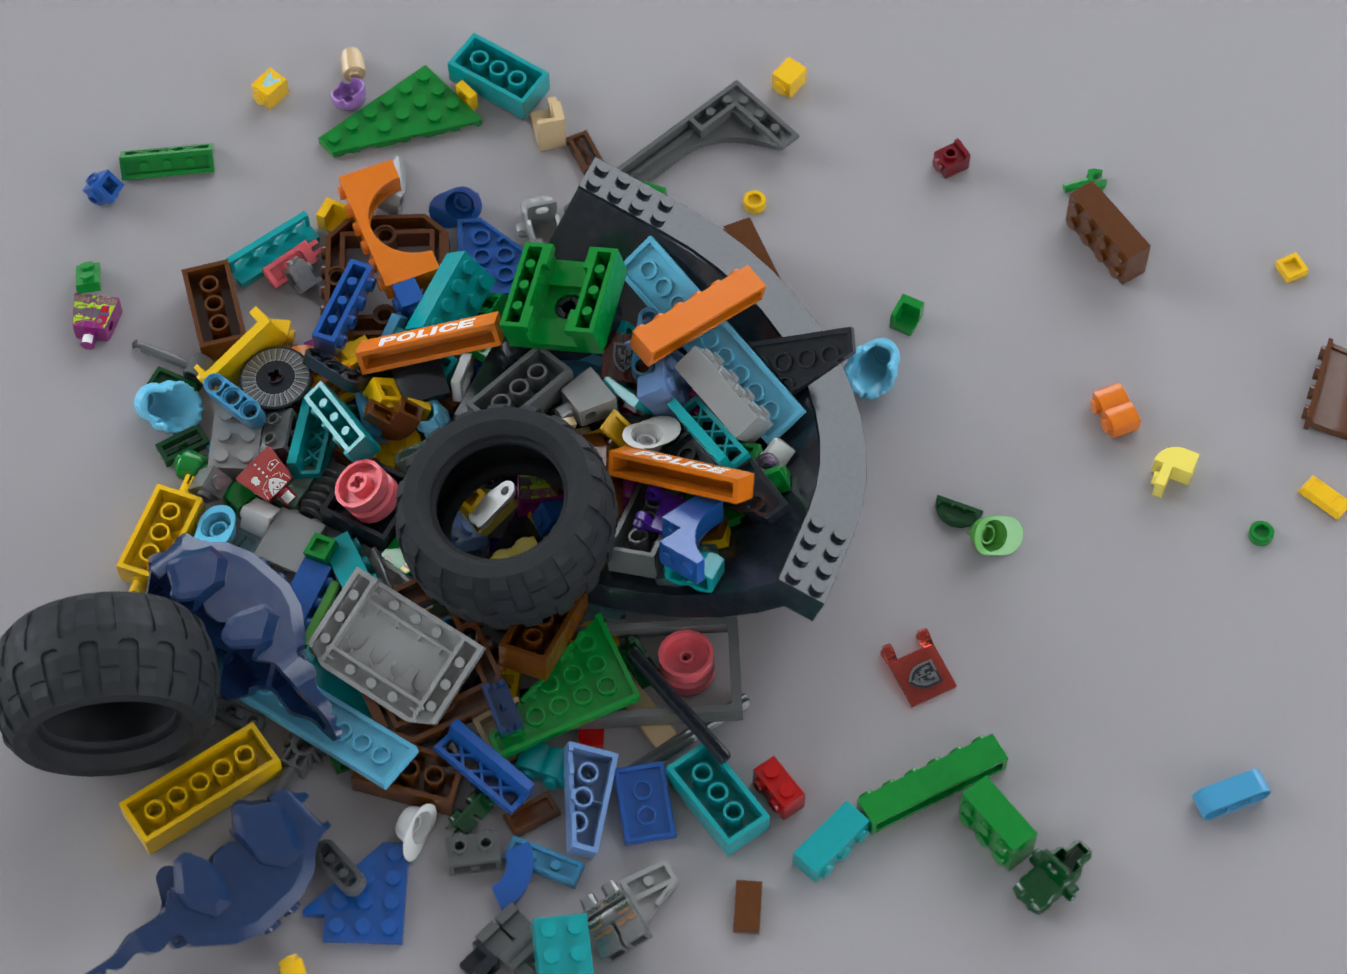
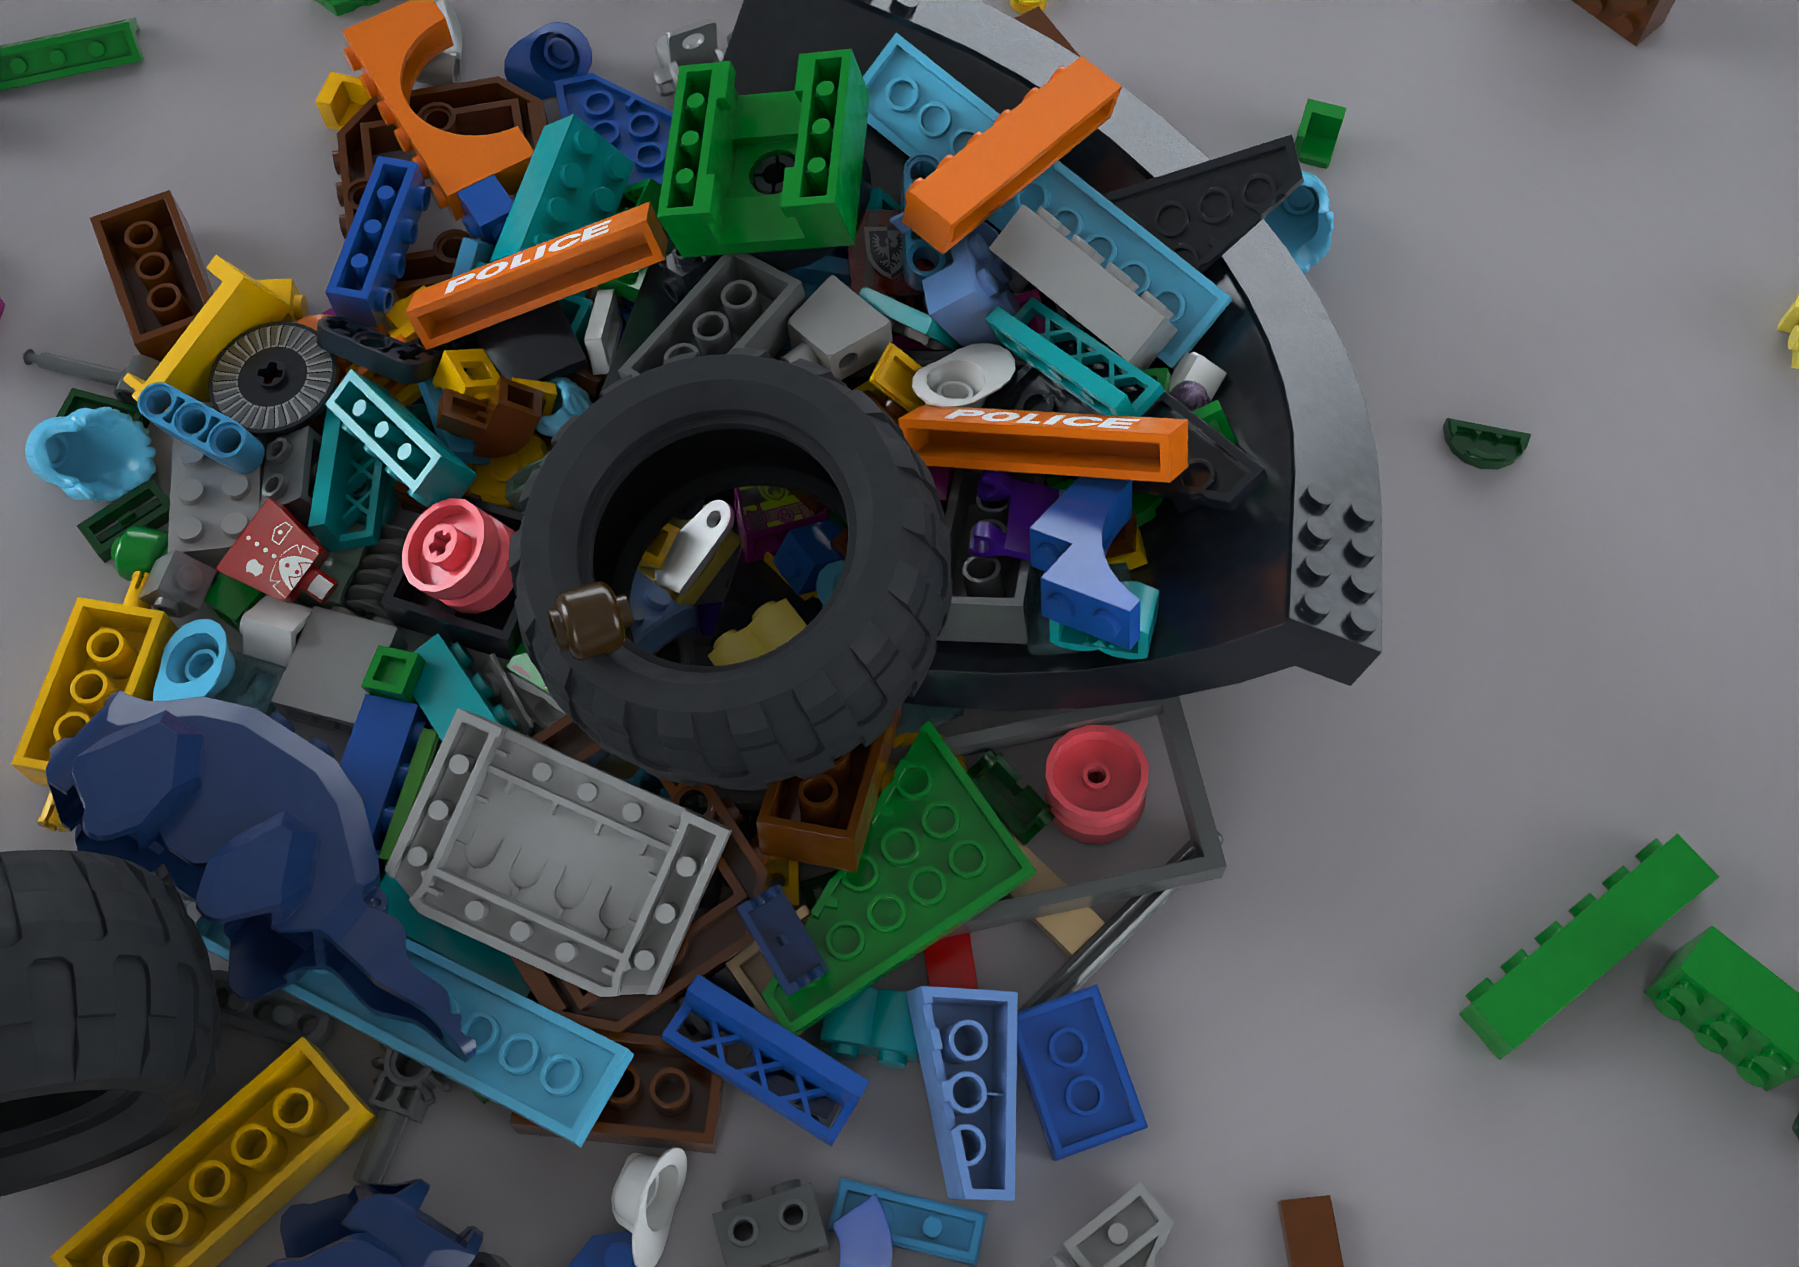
camera: 10 degrees left, 5 degrees up
(249, 268) = (252, 175): teal fence -> none
(274, 270) = (285, 187): coral hinge -> none
(300, 275) = (302, 202): flat silver brick -> none
(431, 527) = (590, 620): none -> dark brown head
(476, 804) = (736, 1160): dark green hinge -> none
(532, 814) = (871, 1126): reddish brown tile -> none
(678, 705) = (1110, 877): black axle -> none
(718, 799) = (1213, 1042): teal brick -> none
(778, 788) = (1316, 1001): red brick -> none
(831, 842) = (1440, 1094): teal brick -> none
(920, 673) = (1504, 733): clear red flag -> none
(996, 535) = (1567, 472): bright green piece -> none
(1115, 410) = (1697, 238): orange brick -> none

